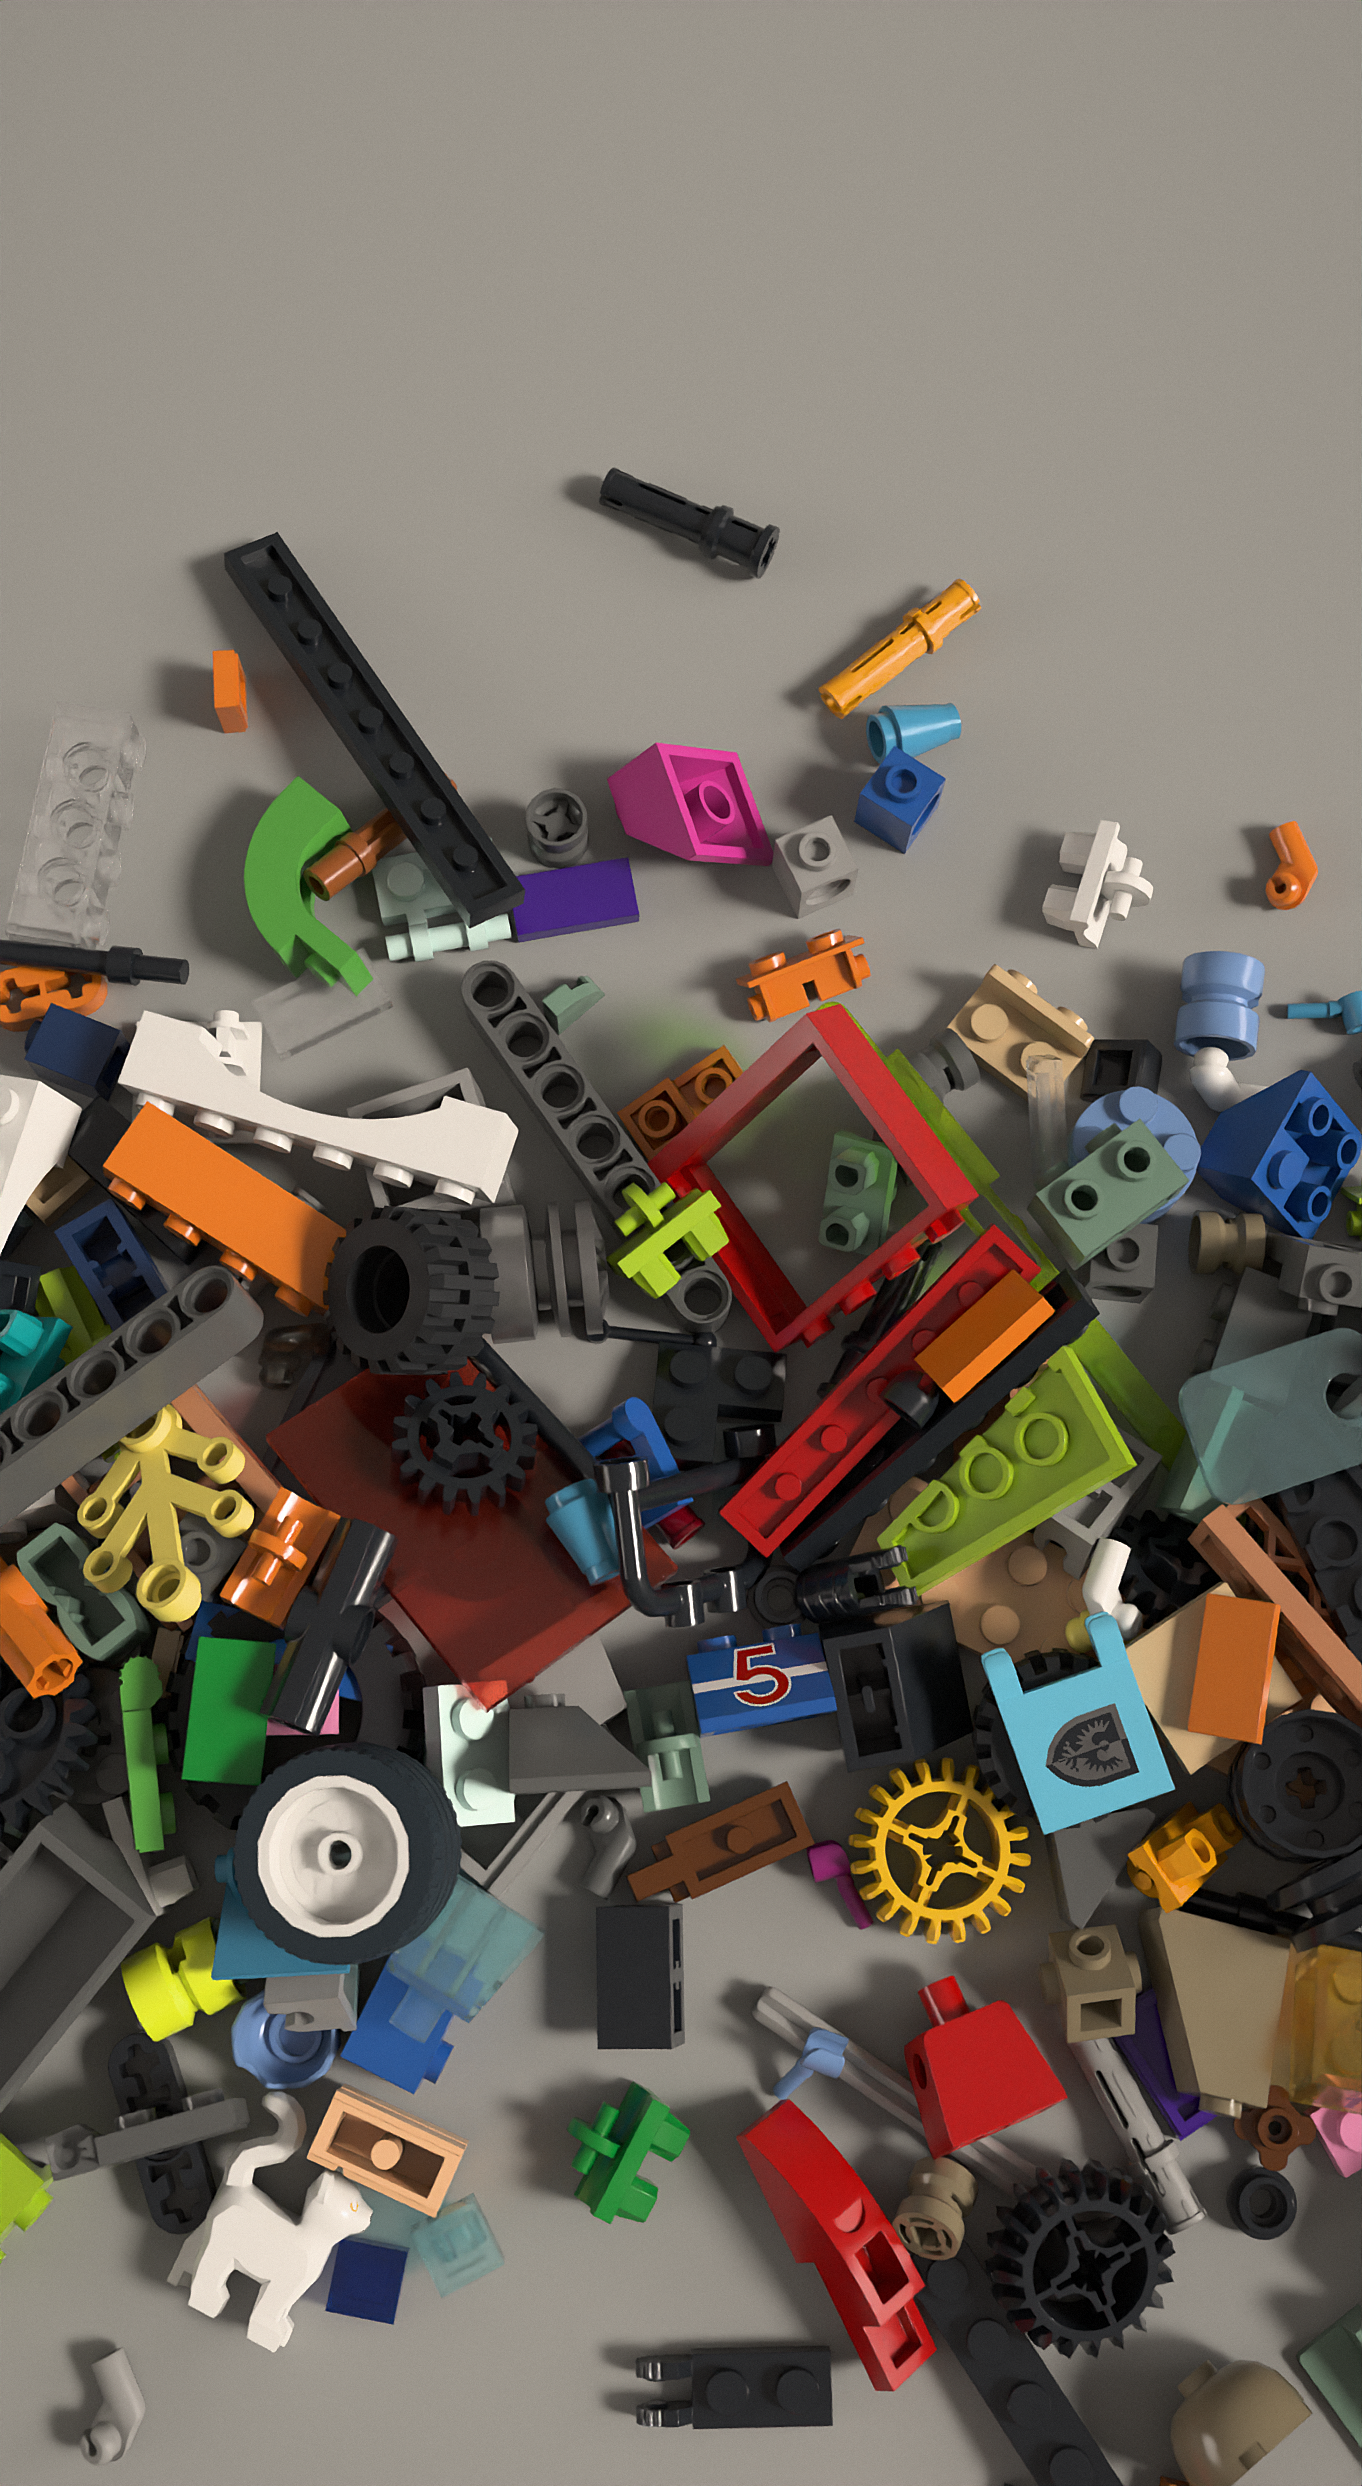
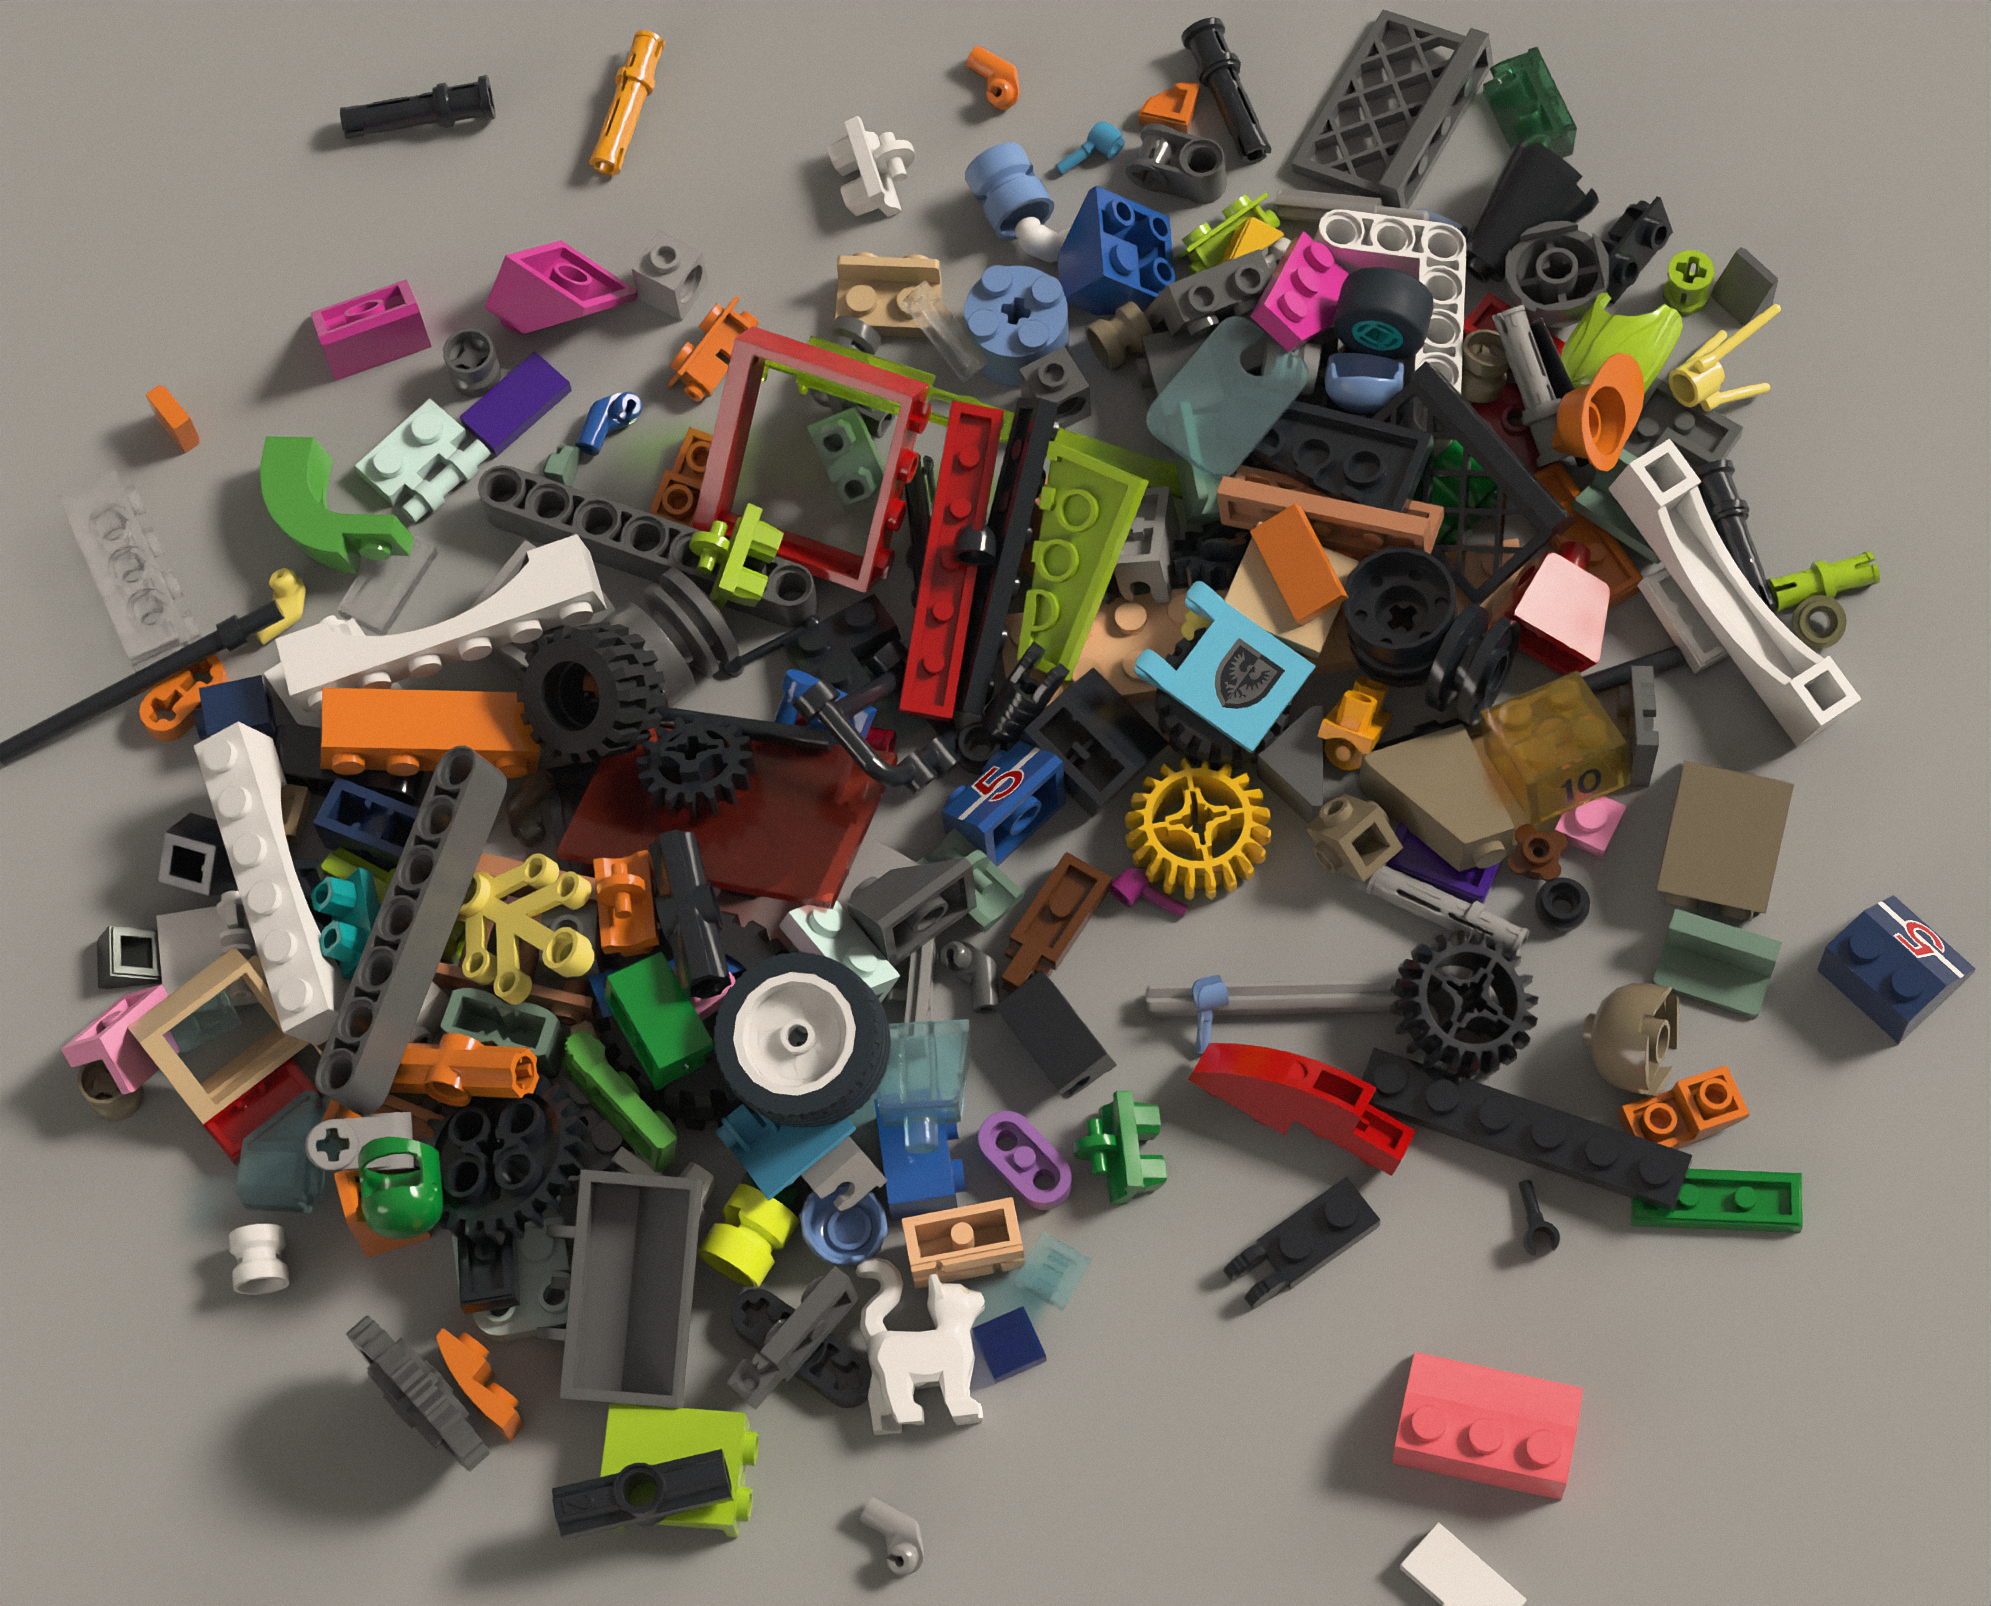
camera: 25 degrees left, 10 degrees down
(211, 960) = (290, 595): none -> light yellow arm
(355, 855) = (345, 458): dark orange axle -> none
(374, 731) = (296, 374): black plate -> none
(484, 722) = (371, 330): none -> dark pink slope
(517, 2090) = (1027, 1161): none -> medium lavender plate
(586, 1529) = (817, 762): dark azure cone -> none
(652, 975) = (607, 416): none -> blue arm
(899, 799) = (697, 197): blue brick -> none
(912, 728) = (672, 150): dark azure cone -> none
(930, 2218) = (1350, 1038): dark tan wheel -> none
(974, 2070) = (1317, 939): red torso -> none
(984, 1335) = (994, 470): orange tile -> none
(1102, 1583) = (1181, 574): white arm -> none
(1105, 1192) = (1013, 340): sand green brick -> none
(1119, 1065) = (965, 270): black slope -> none

